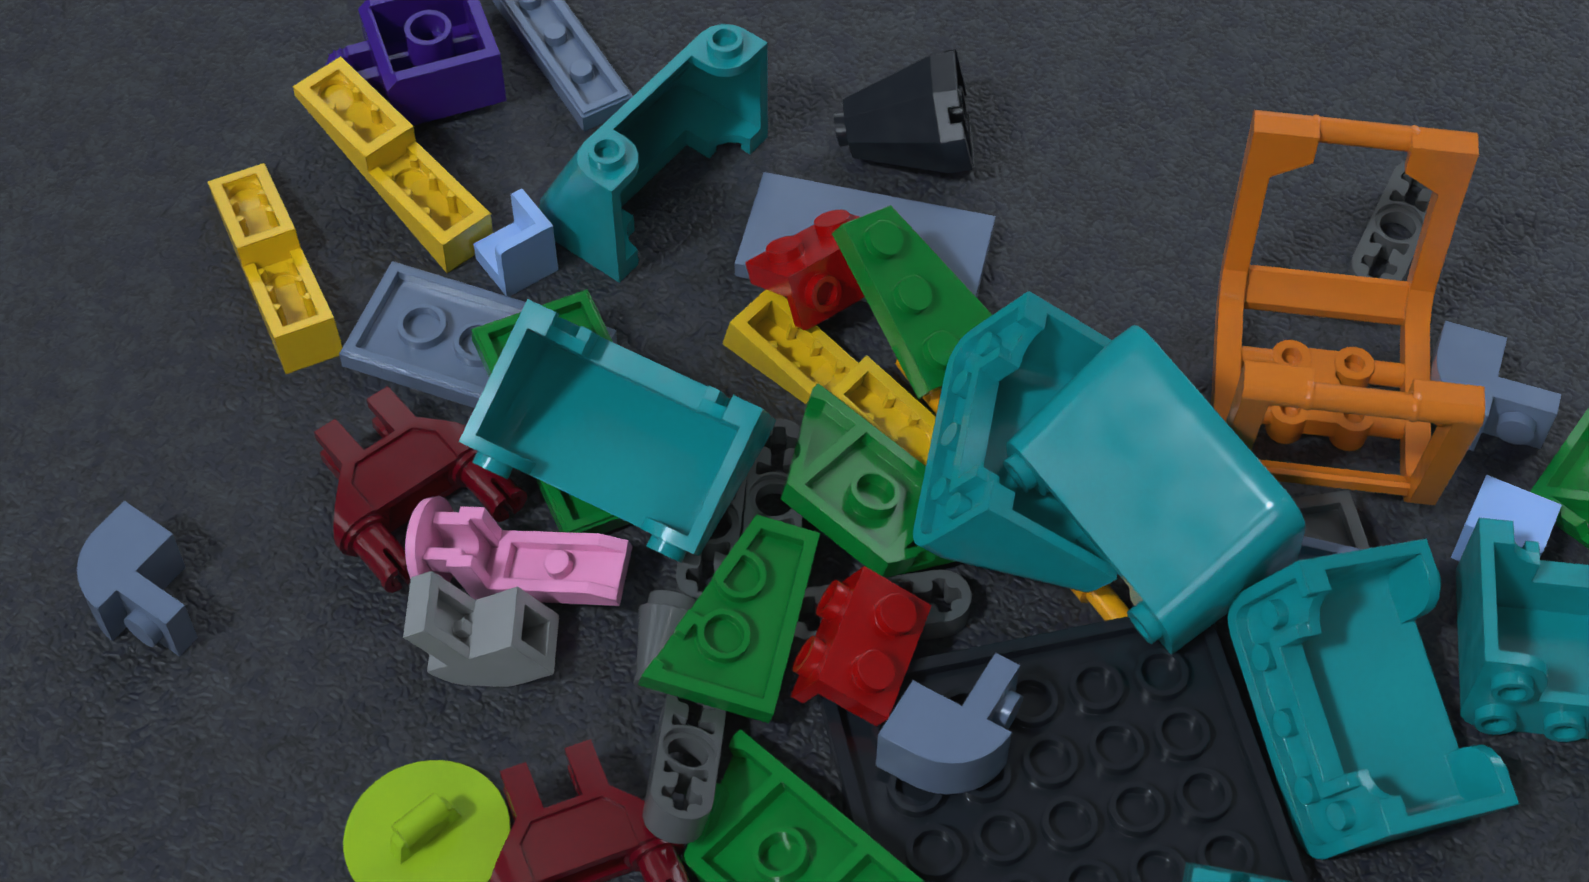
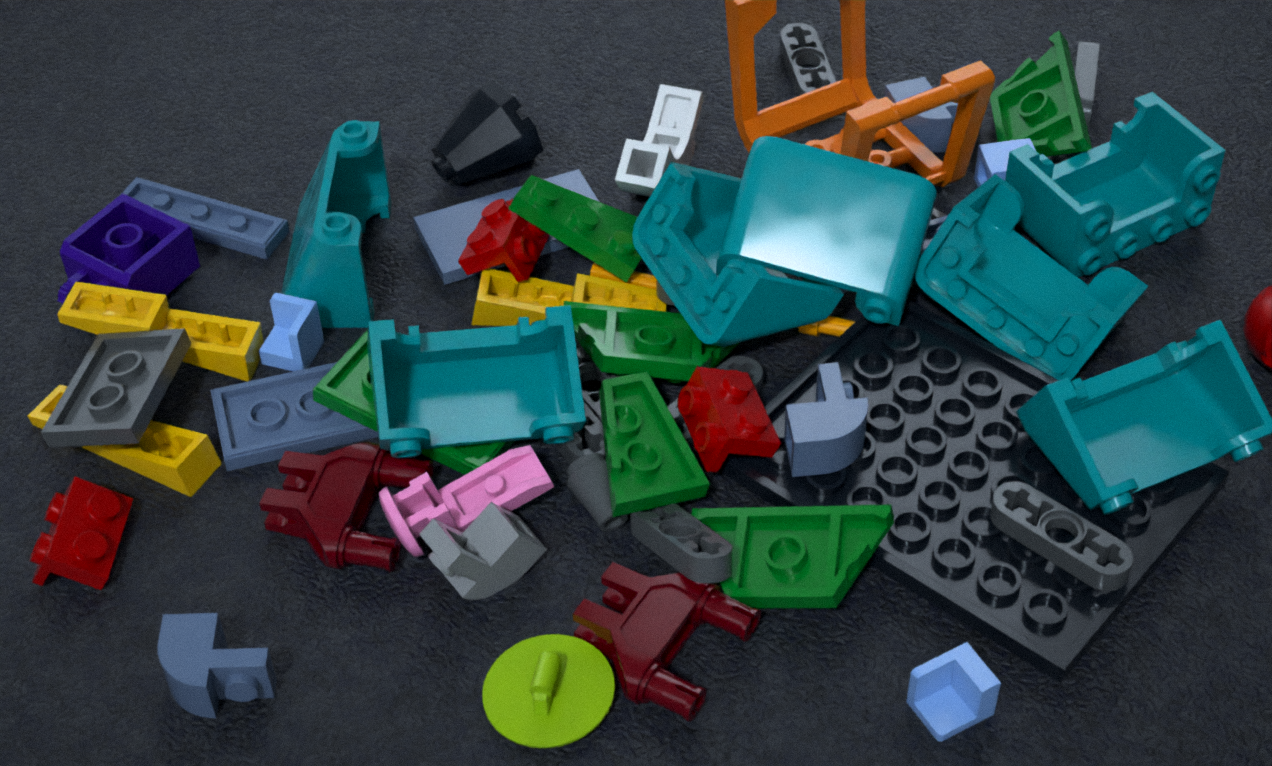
camera: 35 degrees left, 10 degrees down
(145, 356) = (82, 534): none -> red bracket
(287, 209) = (117, 388): none -> dark grey plate
(1105, 257) = (666, 141): none -> white arch

